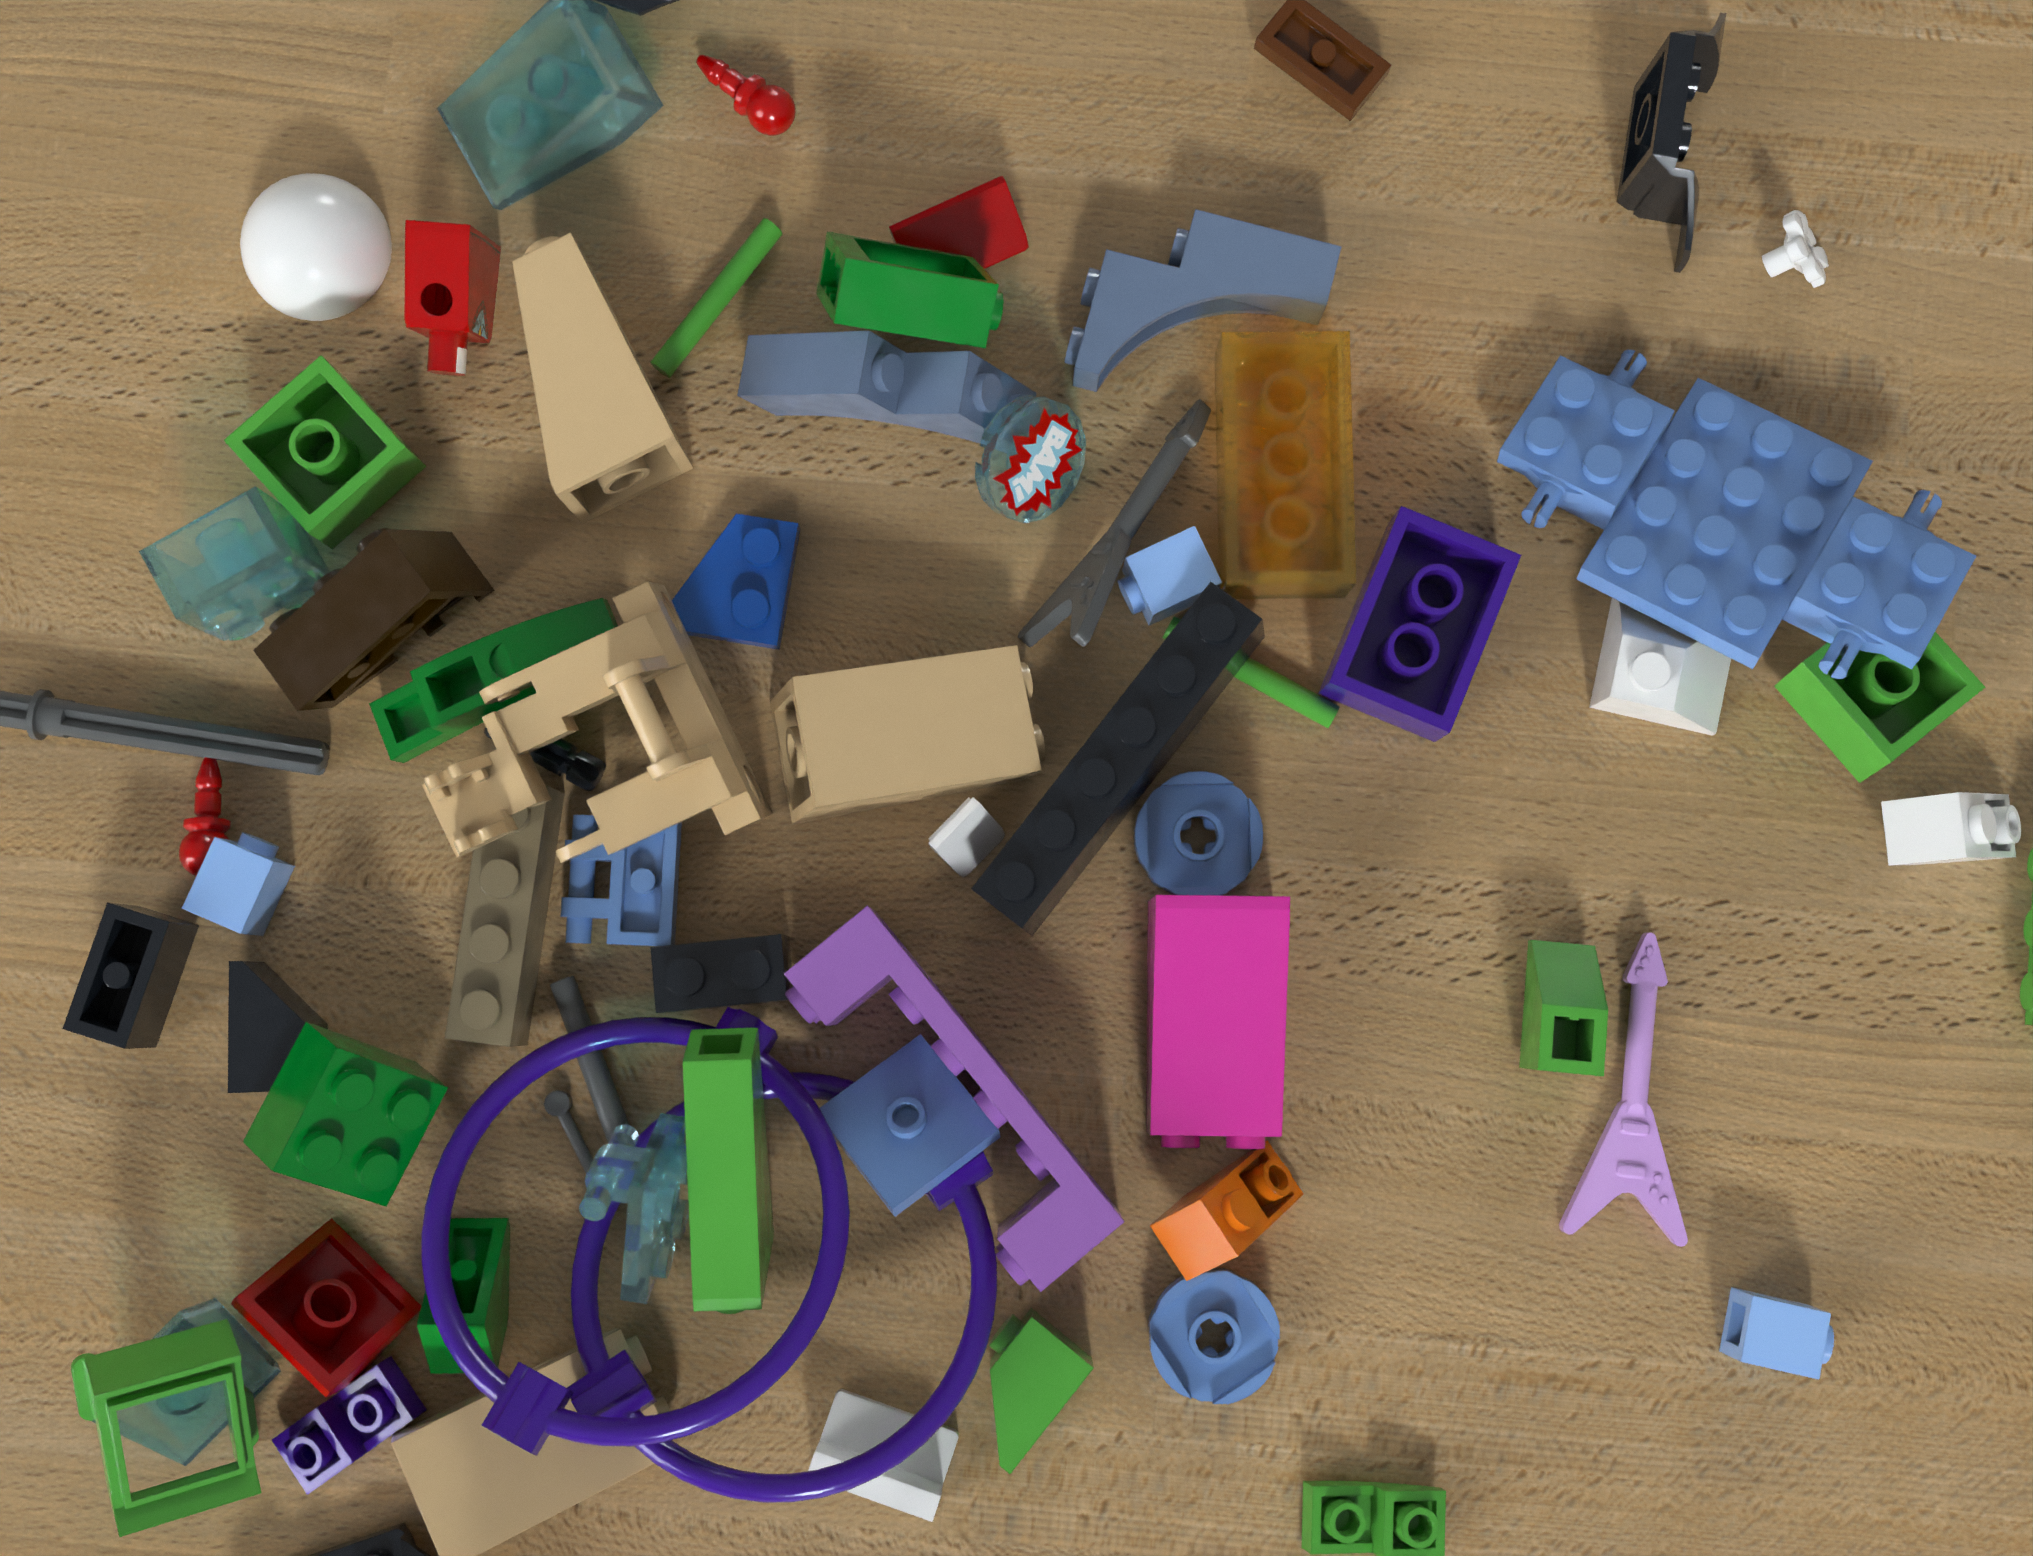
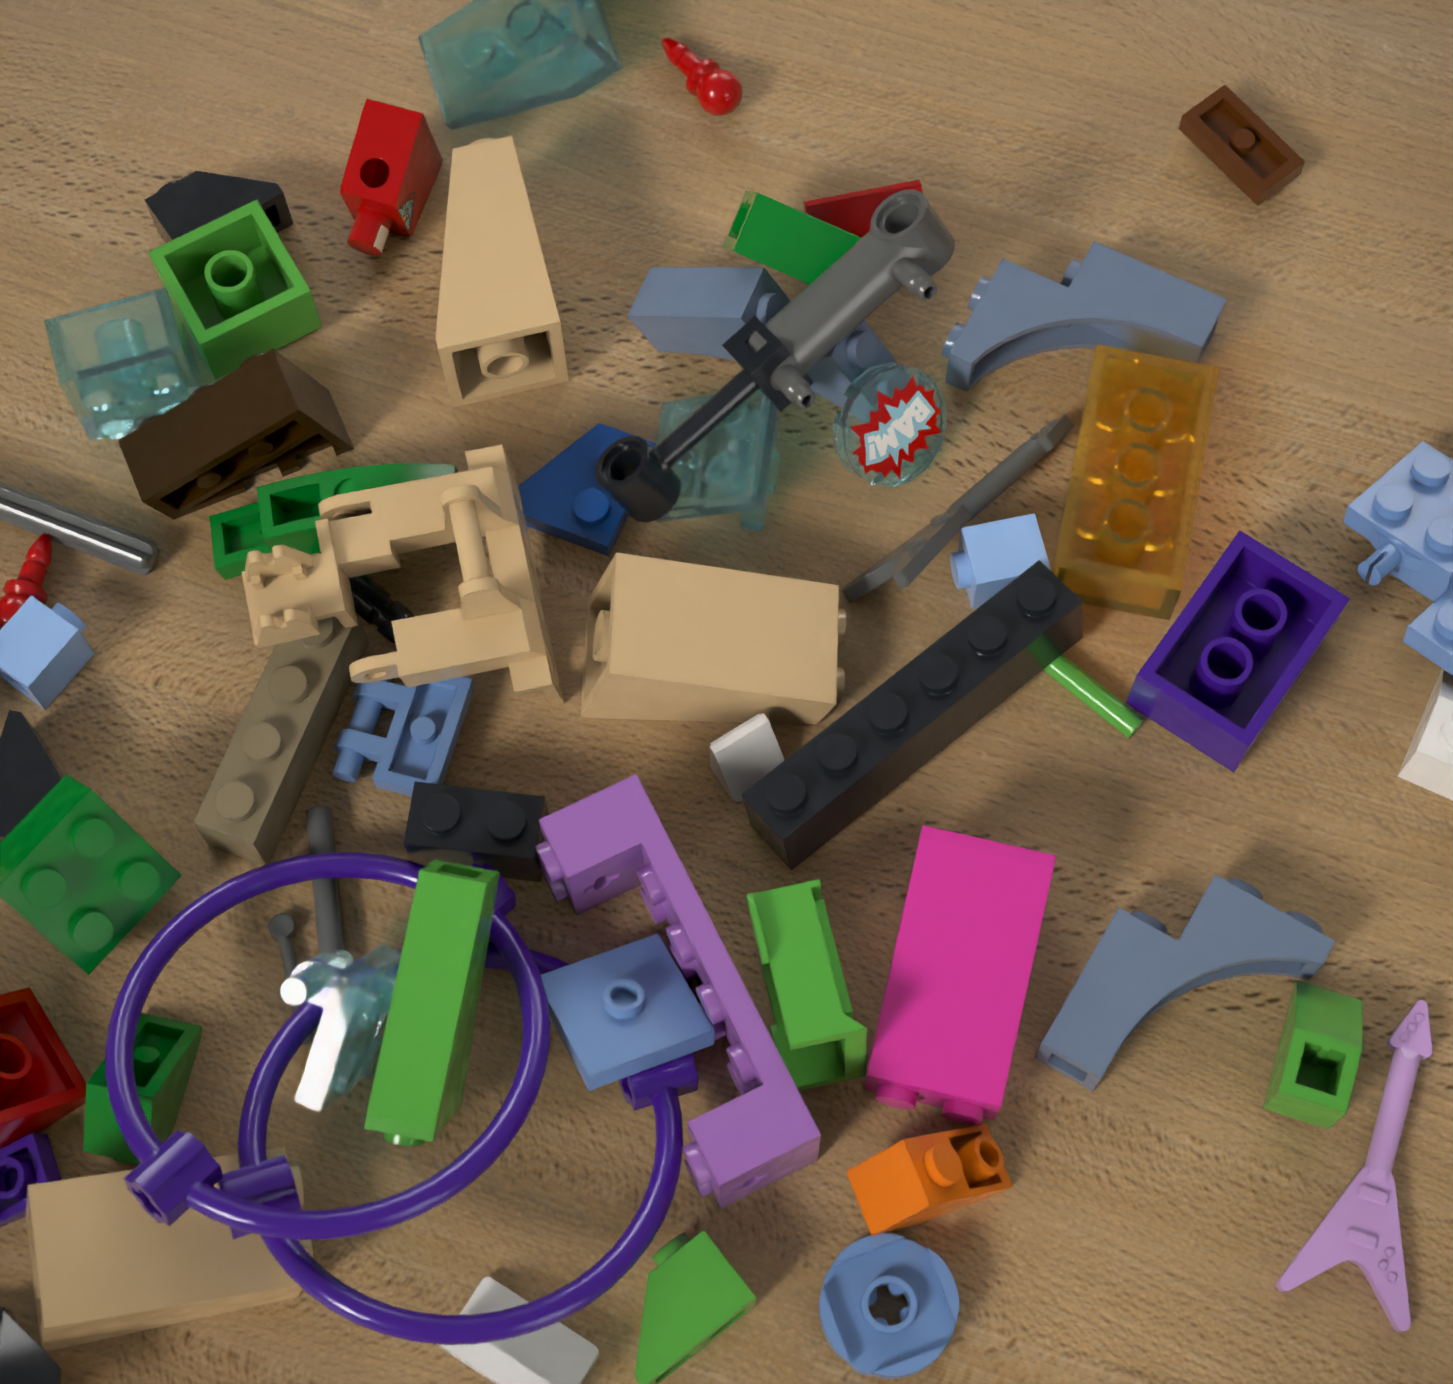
camera: 15 degrees right, 15 degrees down
(267, 359) = (207, 196): none -> black slope
(315, 246) = (276, 124): white piece -> none
(716, 297) = (628, 239): bright green bar -> none
(862, 528) = (730, 466): none -> clear light blue plate
(1006, 291) = (900, 250): none -> piece
(1075, 1064) = (806, 987): none -> bright green piece
(1223, 809) = (987, 771): medium blue plate -> none
(1382, 968) = (1144, 969): none -> sand blue arch

